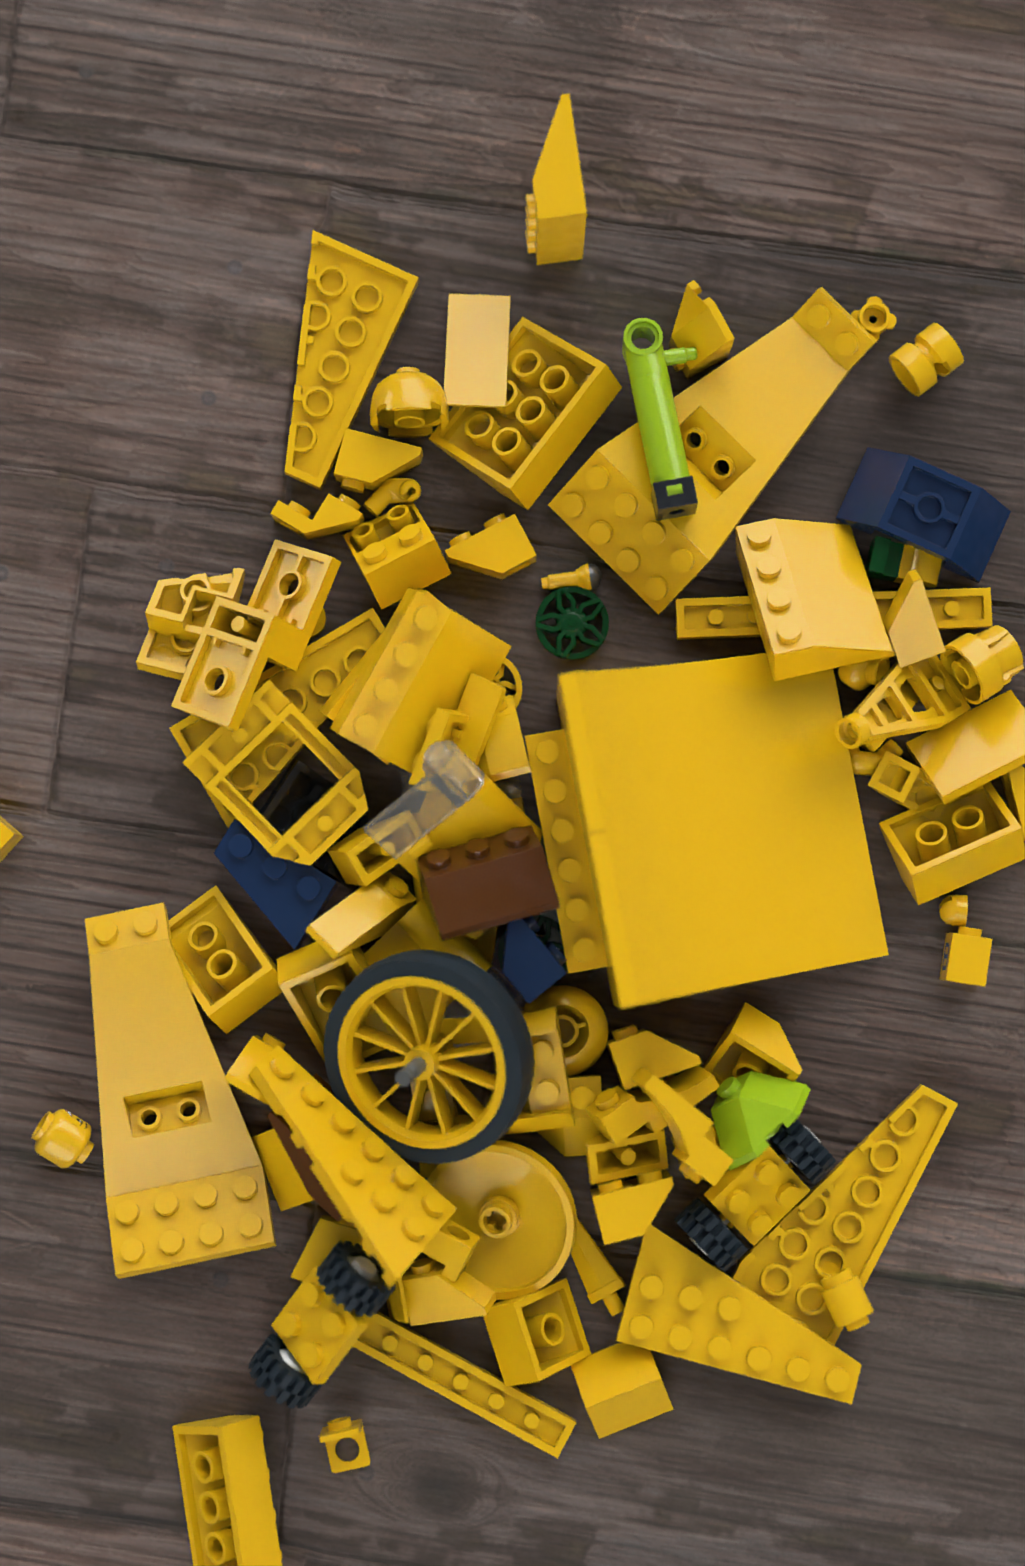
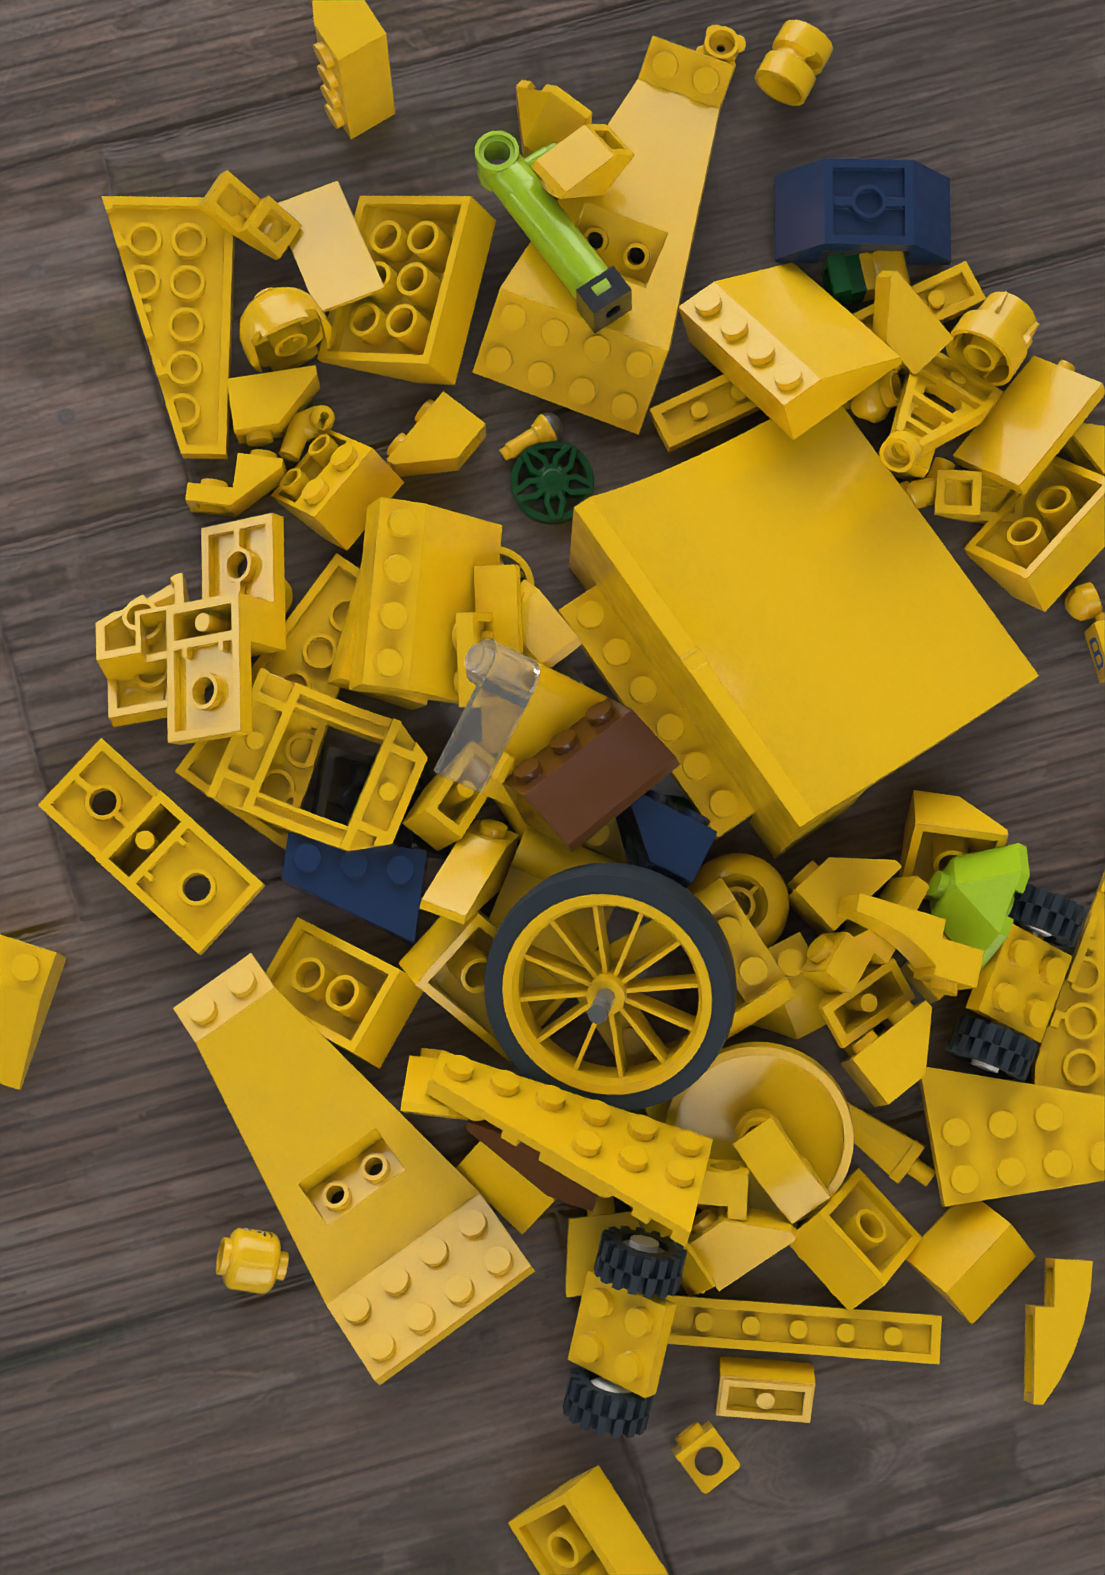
camera: 30 degrees left, 5 degrees down
(123, 781) = (151, 846): none -> yellow bracket
(415, 1414) = (765, 1389): none -> yellow slope
(423, 299) = (251, 219): none -> yellow slope
(500, 1256) = (782, 1170): none -> yellow slope
(662, 1469) = (1055, 1326): none -> yellow slope
(708, 377) = (583, 163): none -> yellow slope

